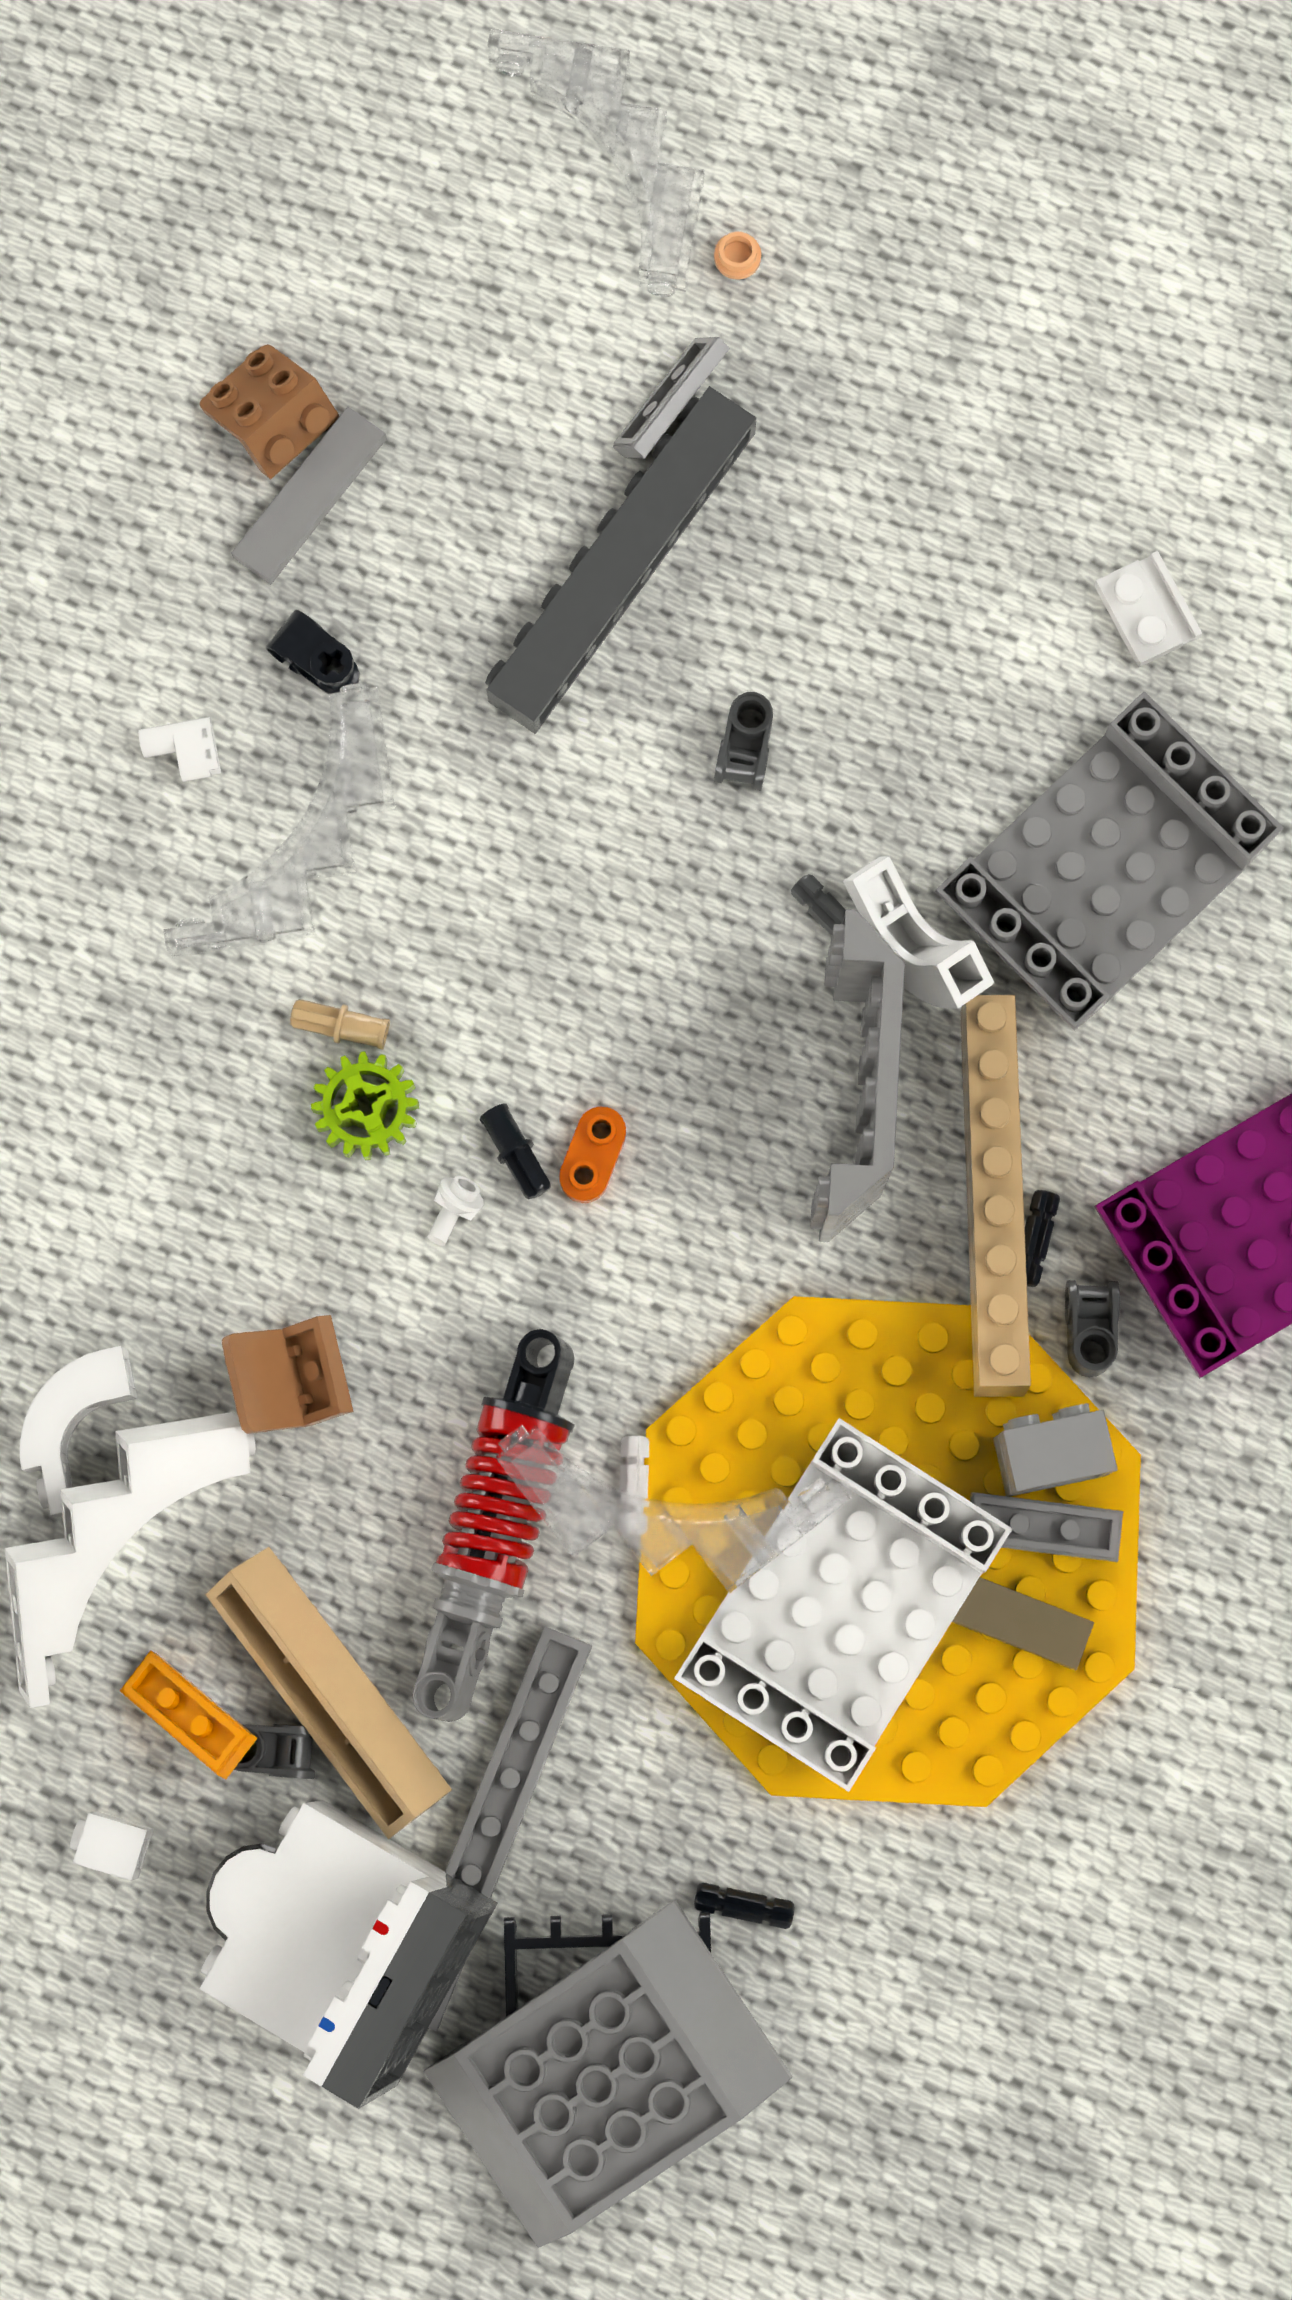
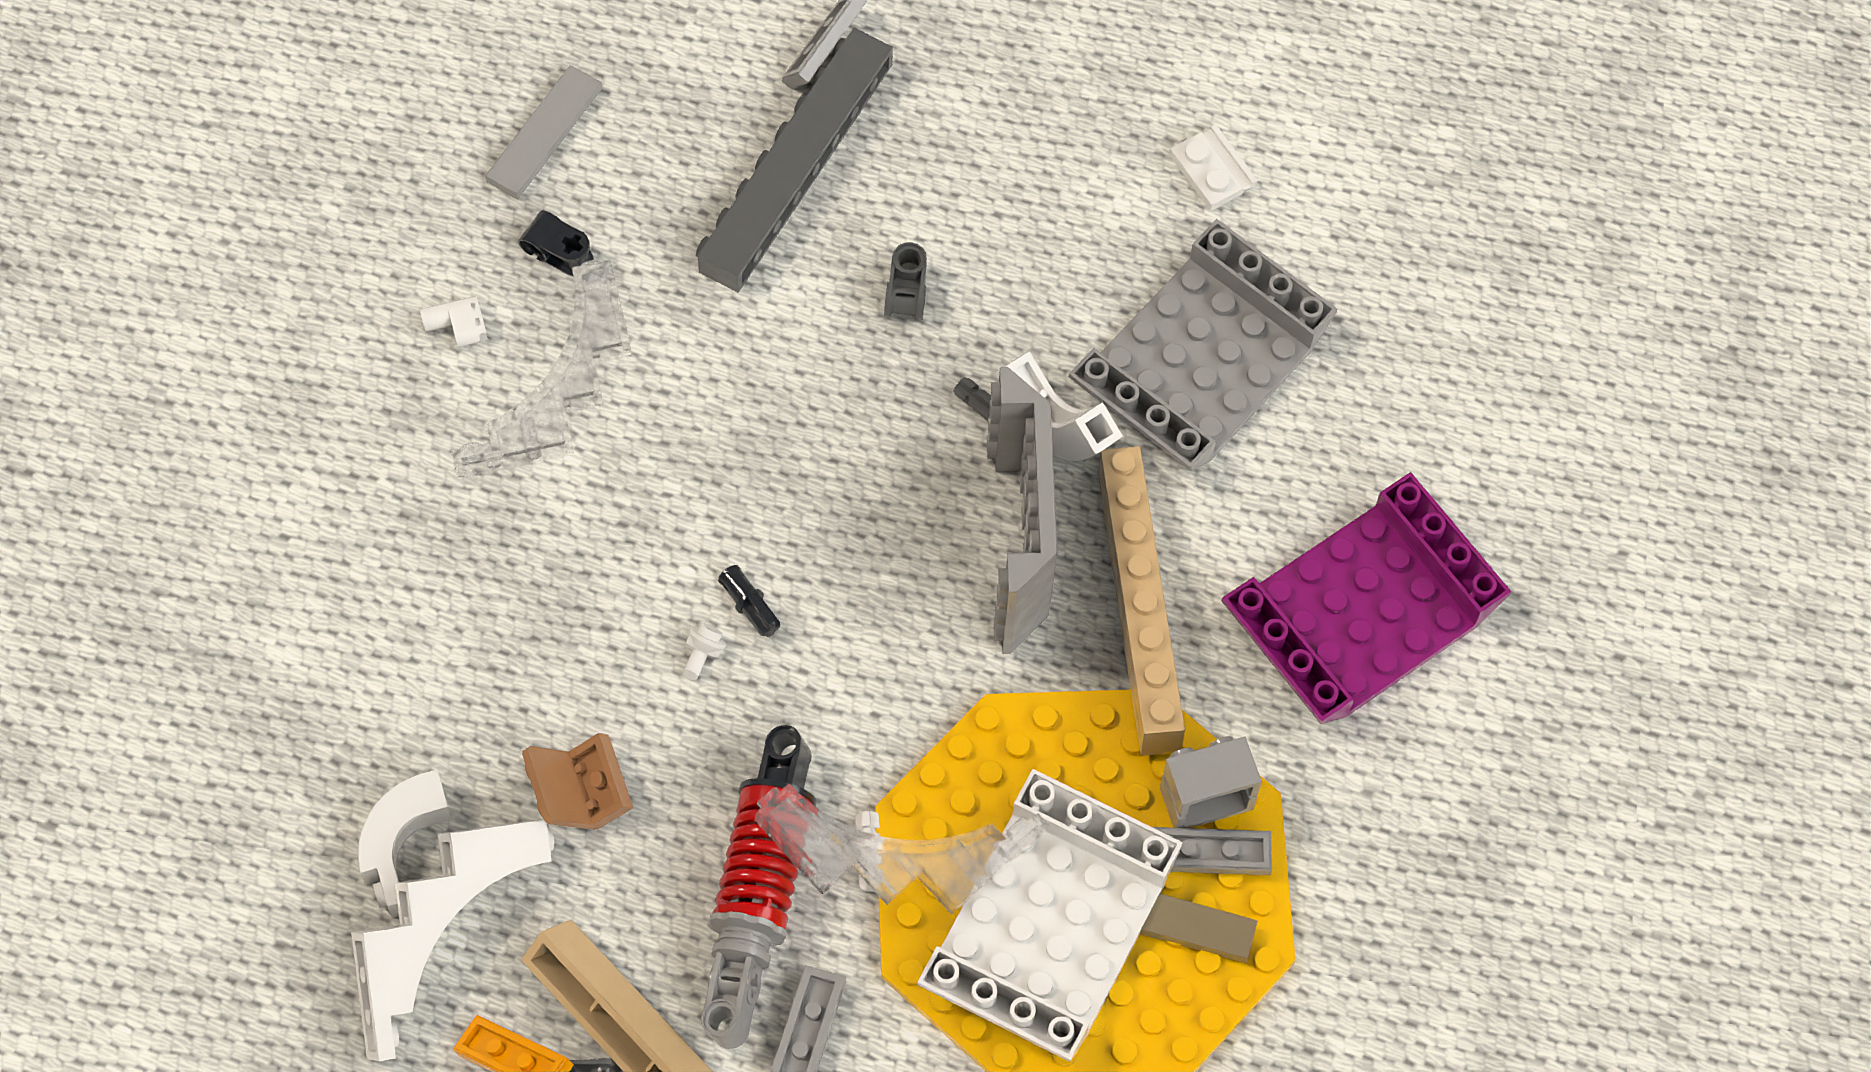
camera: 10 degrees left, 15 degrees down
(270, 408) = (511, 69): medium nougat bracket -> none
(339, 1023) = (598, 516): tan axle -> none
(343, 1115) = (634, 560): lime gear -> none
(592, 1153) = (812, 598): orange plate -> none
(1039, 1232) = (1179, 630): black axle -> none
(1092, 1316) = (1229, 692): dark grey piece -> none

